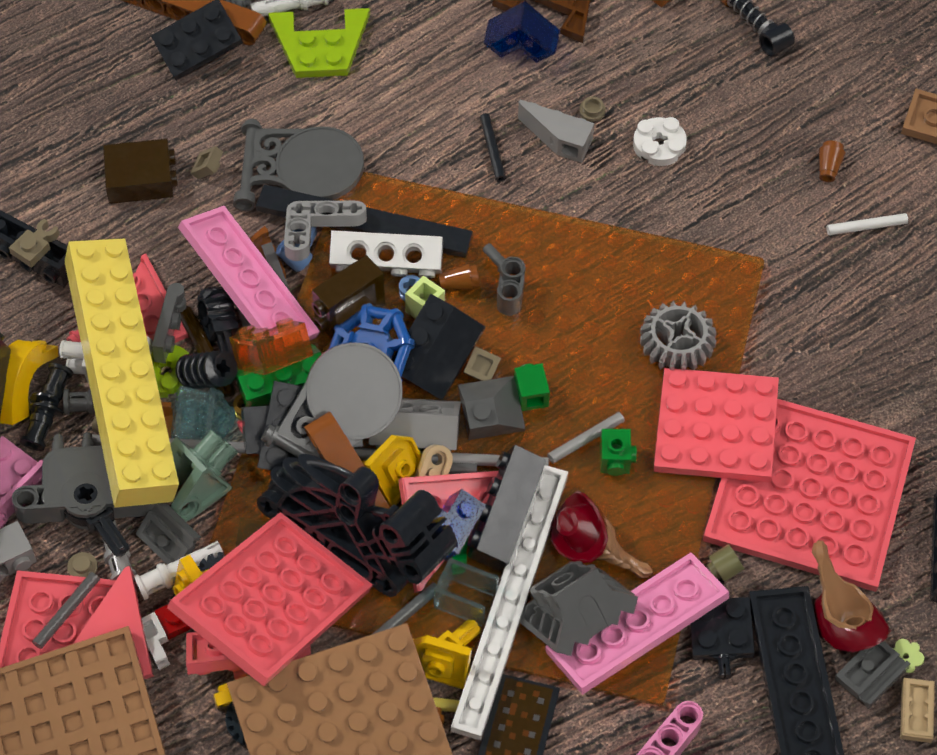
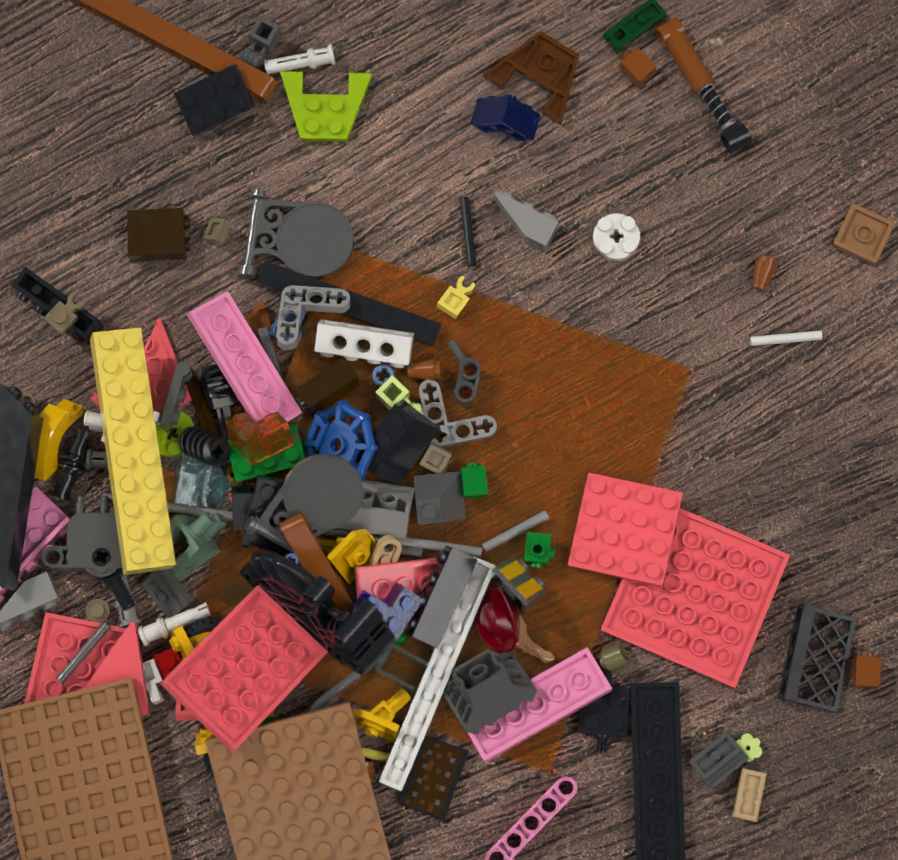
camera: 10 degrees right, 20 degrees up
(486, 207) = (454, 299): none -> light yellow plate
(494, 336) = (450, 428): none -> light grey beam
(592, 109) = (560, 199): dark tan plate -> none
(594, 479) = (518, 583): none -> dark grey slope
(669, 324) = (615, 427): light grey gear -> none
(844, 611) = (705, 710): hat -> none

